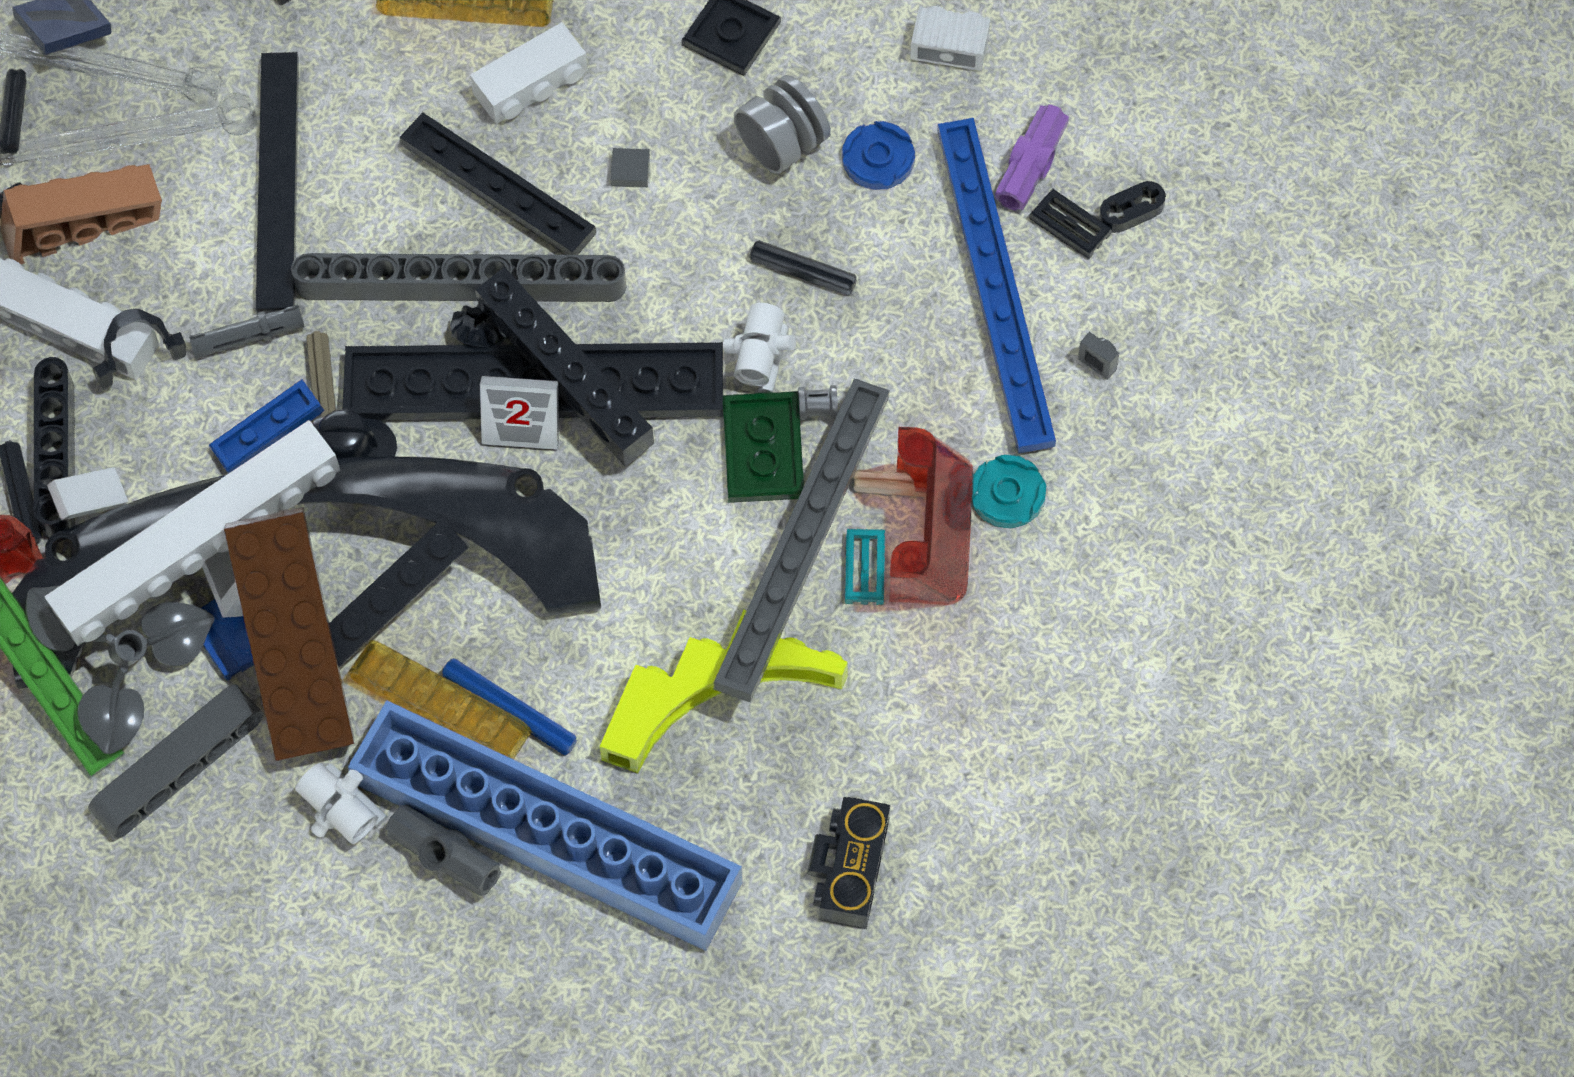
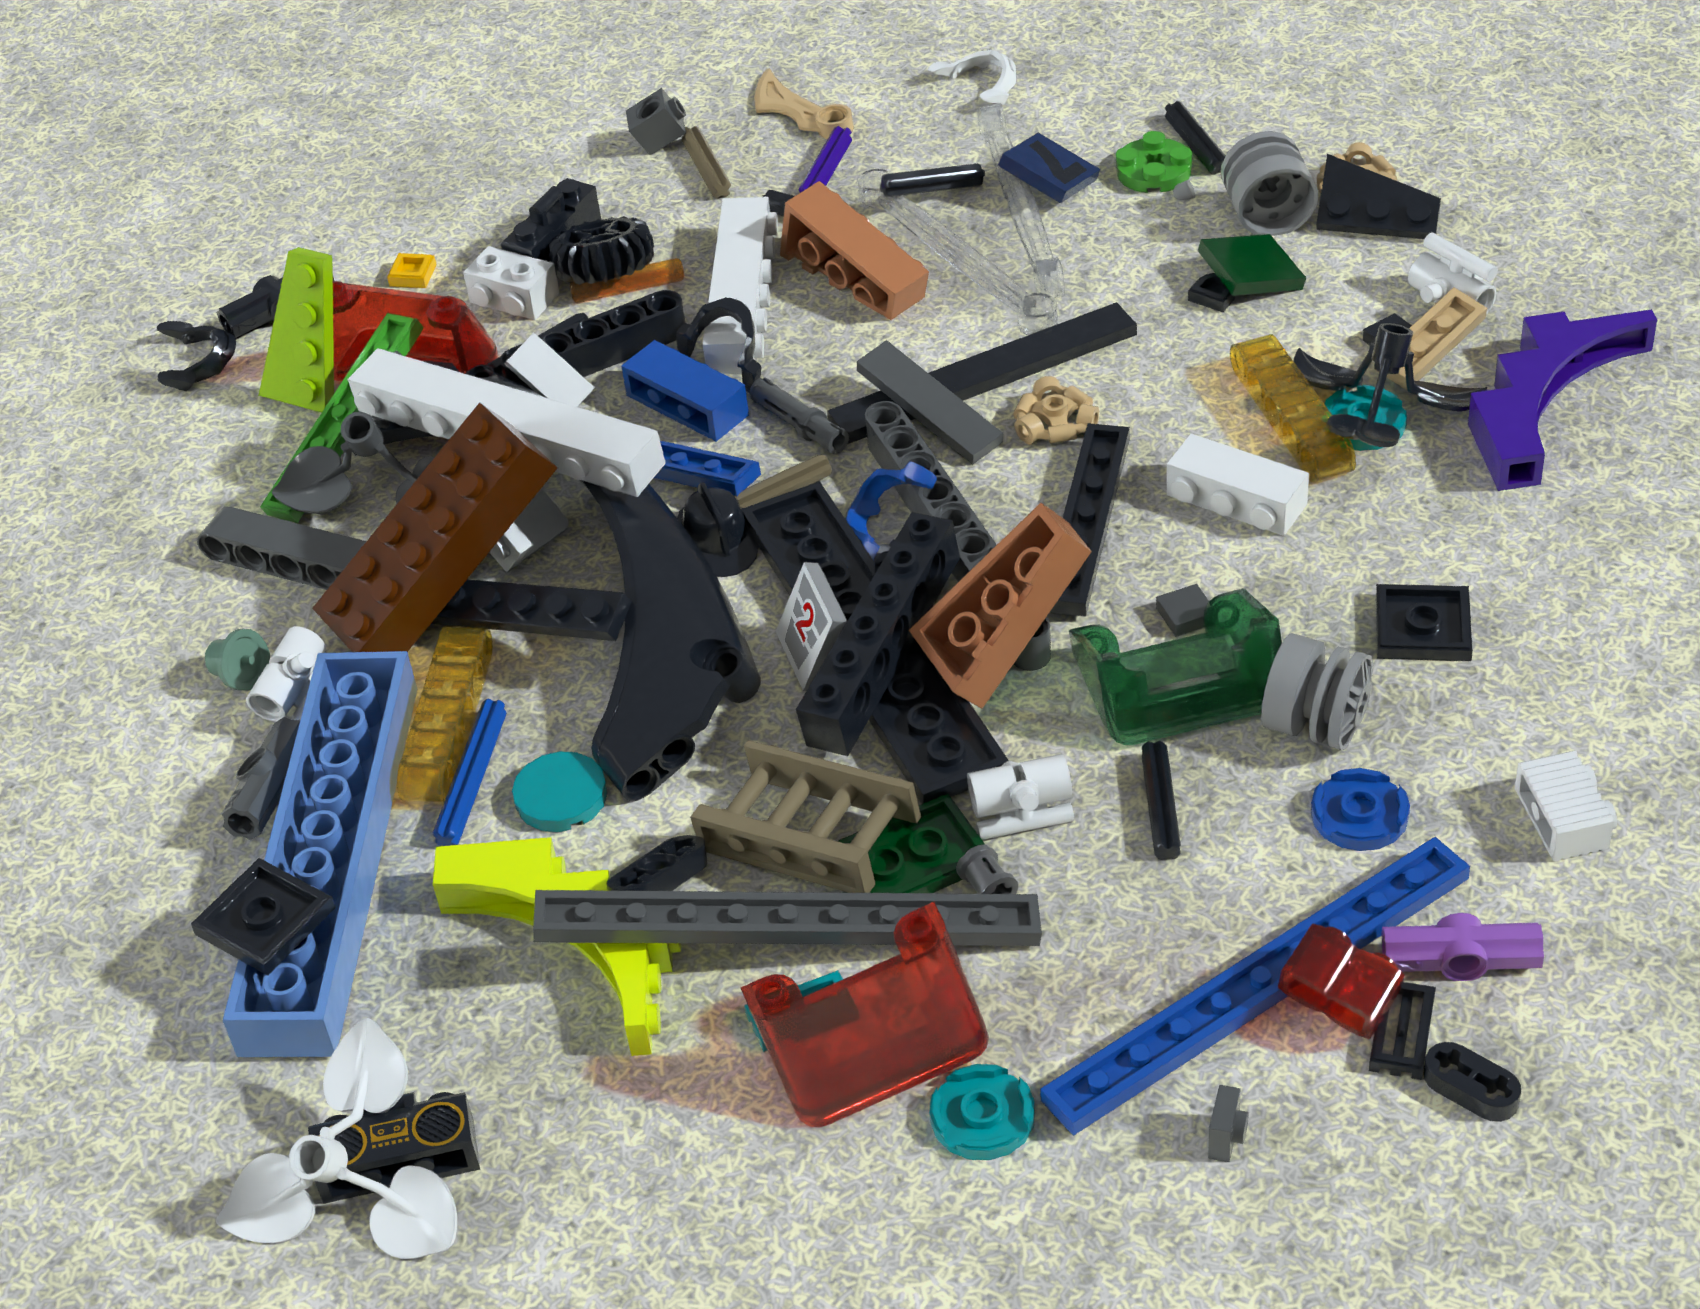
camera: 70 degrees right, 20 degrees down
(163, 400) = (685, 390): none -> blue brick
(284, 841) = (238, 658): none -> sand green piece
(300, 232) = (929, 402): none -> dark grey tile
(364, 154) = (1054, 410): none -> tan piece
(383, 326) = (866, 500): none -> blue helmet
(565, 650) = (559, 791): none -> teal tile
(602, 280) = (1000, 604): none -> nougat wedge
(622, 878) = (263, 916): none -> black tile
(691, 604) = (663, 866): none -> black beam
(699, 193) = (1183, 680): none -> clear green windscreen
(710, 527) = (808, 853): none -> dark tan fence
(920, 873) = (270, 1193): none -> white plant
(1034, 234) = (1341, 980): none -> clear red brick

